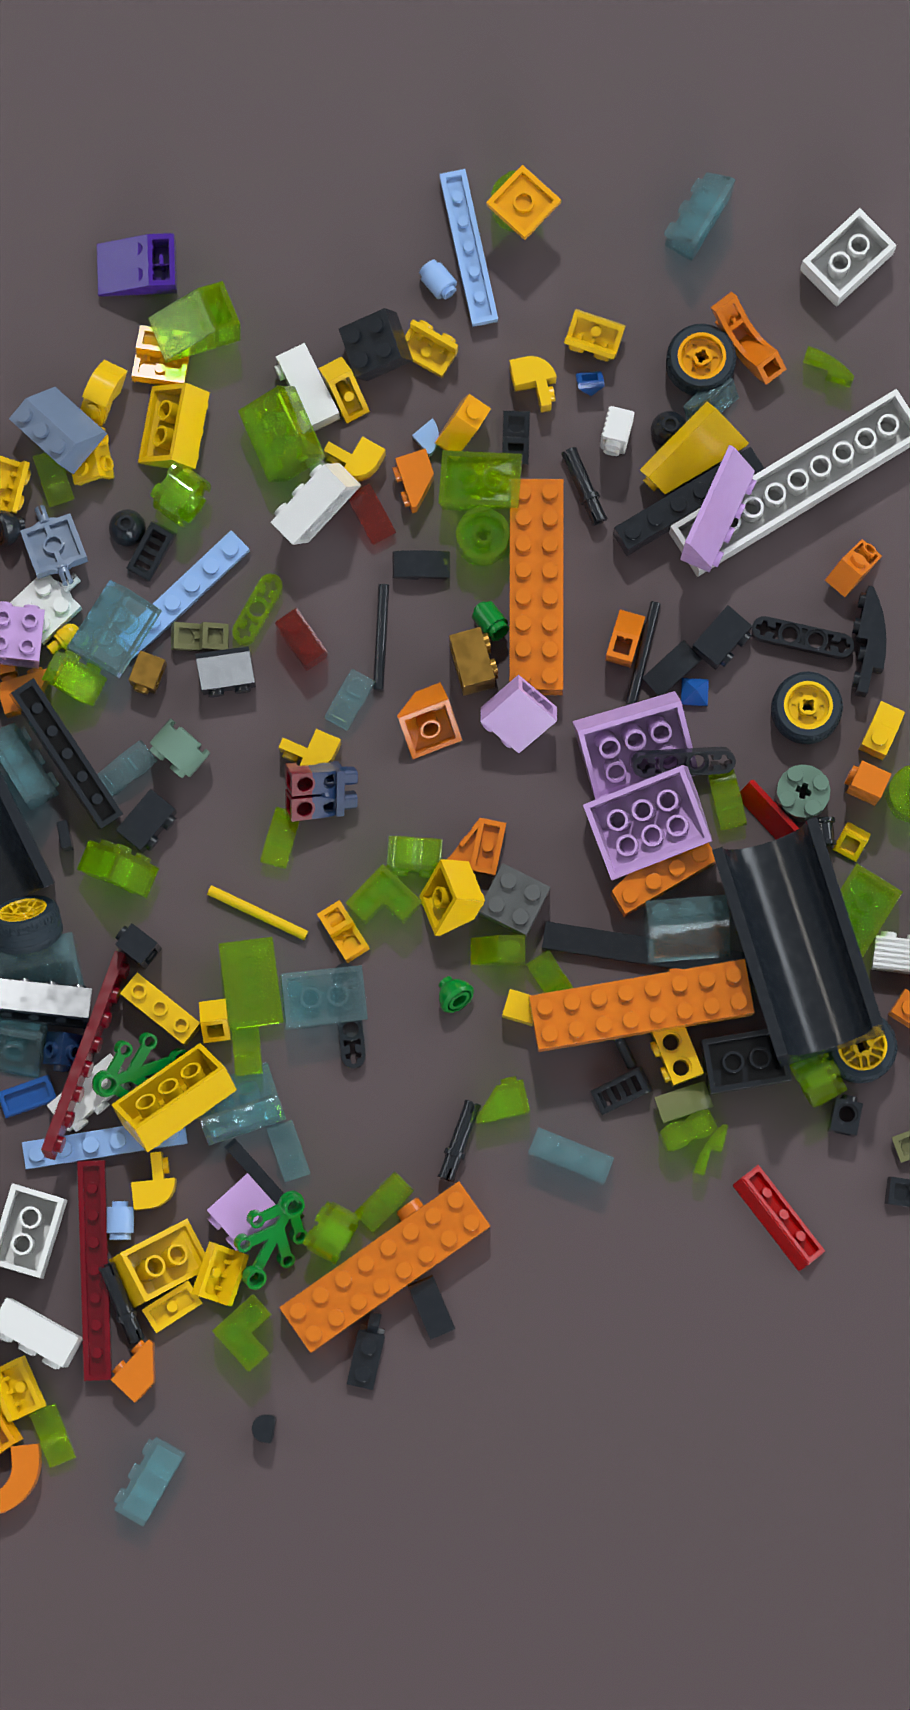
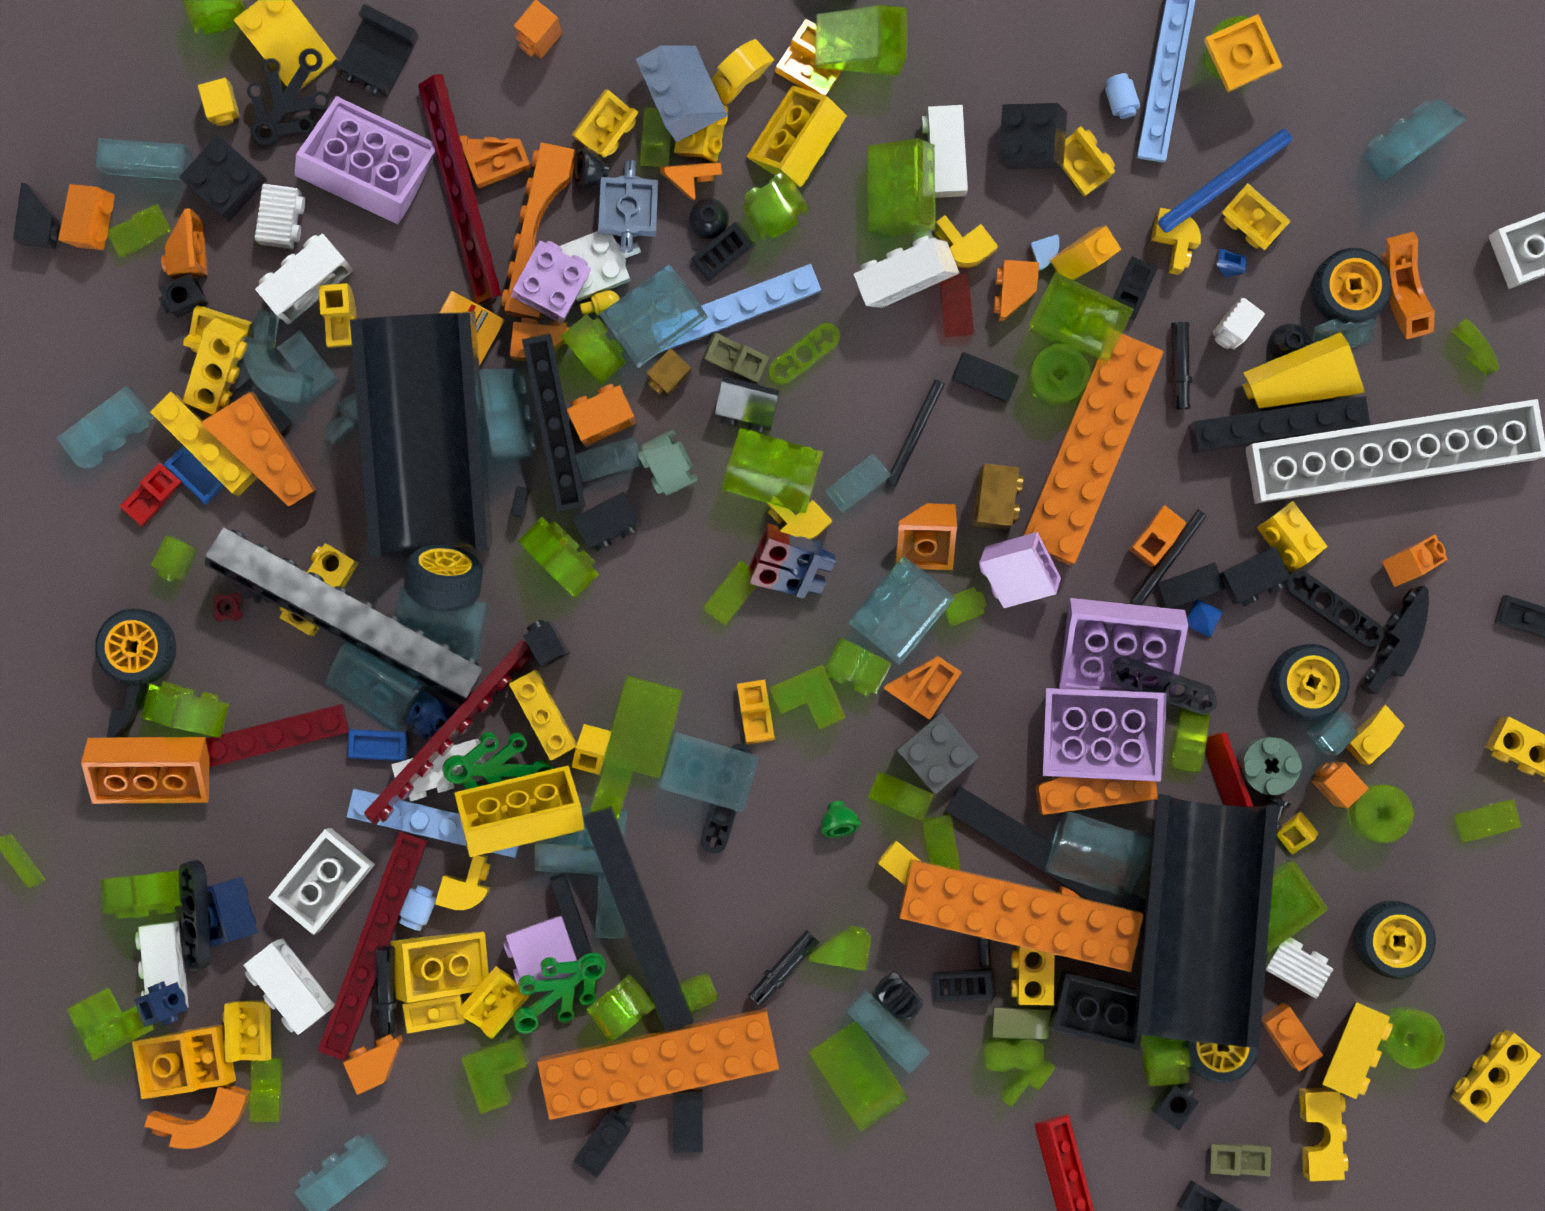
camera: 15 degrees right, 5 degrees up
(90, 500) = (683, 175): none -> orange slope
(104, 731) = (601, 414): none -> orange brick
(257, 912) = (680, 659): yellow bar -> none
(264, 1428) = (474, 1171): black brick -> none
(271, 717) = (772, 470): none -> clear neon green brick
(301, 639) = (835, 403): clear red brick -> none
(315, 1147) = (638, 918): none -> black tile
(344, 389) = (982, 168): yellow slope -> none
(409, 1208) = (707, 1015): orange tile -> none
(431, 791) = (901, 610): none -> clear light blue slope
(451, 896) = (877, 724): yellow slope -> none
(484, 766) = (965, 606): none -> clear neon green brick
(490, 620) = (1031, 462): green brick -> none
(555, 314) = (1224, 180): none -> blue axle
(563, 1206) = (858, 1075): none -> clear neon green slope
(568, 1122) = (899, 996): none -> black gear
(718, 511) = (1307, 451): lavender slope -> none
(740, 591) = (1292, 536): none -> yellow bracket
(844, 741) = (1333, 733): none -> clear light blue slope

